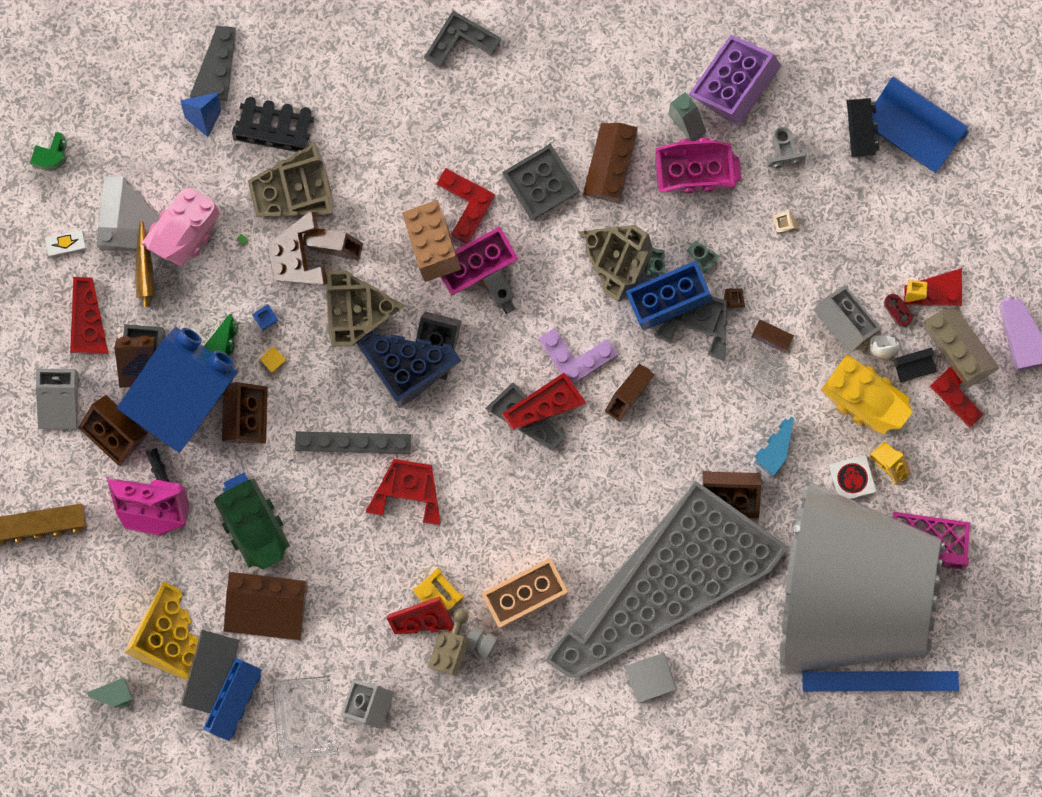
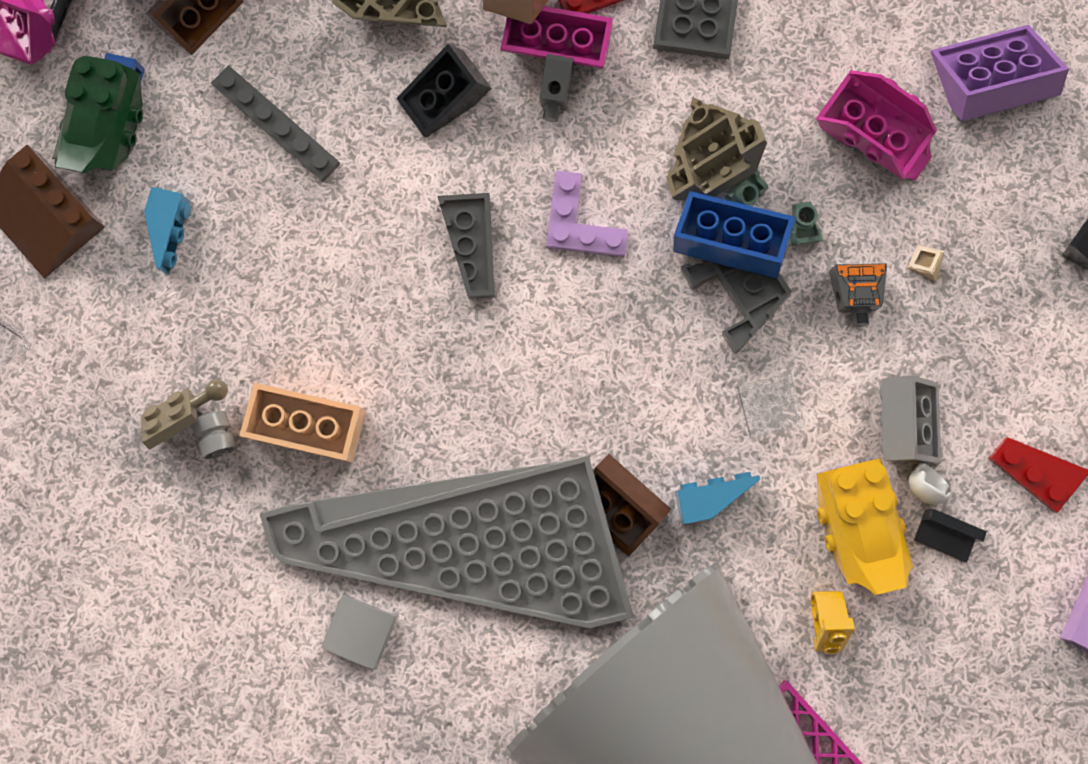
camera: 45 degrees right, 0 degrees up
(341, 548) = (164, 219): none -> dark azure slope
(367, 703) = (44, 402): light grey slope -> none
(406, 365) = (392, 86): dark blue slope -> none
(409, 482) = (294, 209): red wing -> none
(421, 617) = (178, 356): red wing -> none
(427, 591) = (211, 348): yellow plate -> none
(548, 401) = (504, 240): red wing -> none
(610, 161) = (790, 52): reddish brown slope -> none
(629, 392) = (602, 302): reddish brown slope -> none
(687, 117) = (914, 58): sand green slope -> none
(732, 298) = (799, 296): reddish brown slope -> none
(761, 269) = (858, 289): none -> torso
(772, 336) = (810, 371): reddish brown panel -> none
(785, 150) = (991, 185): light grey pin -> none
(852, 477) = (771, 601): tile -> none
(901, 307) = (984, 458): dark red beam -> none
(916, 290) = (1018, 453): yellow slope -> none
(947, 389) = (962, 597): red plate -> none
(960, 346) = (1019, 558): dark tan slope -> none

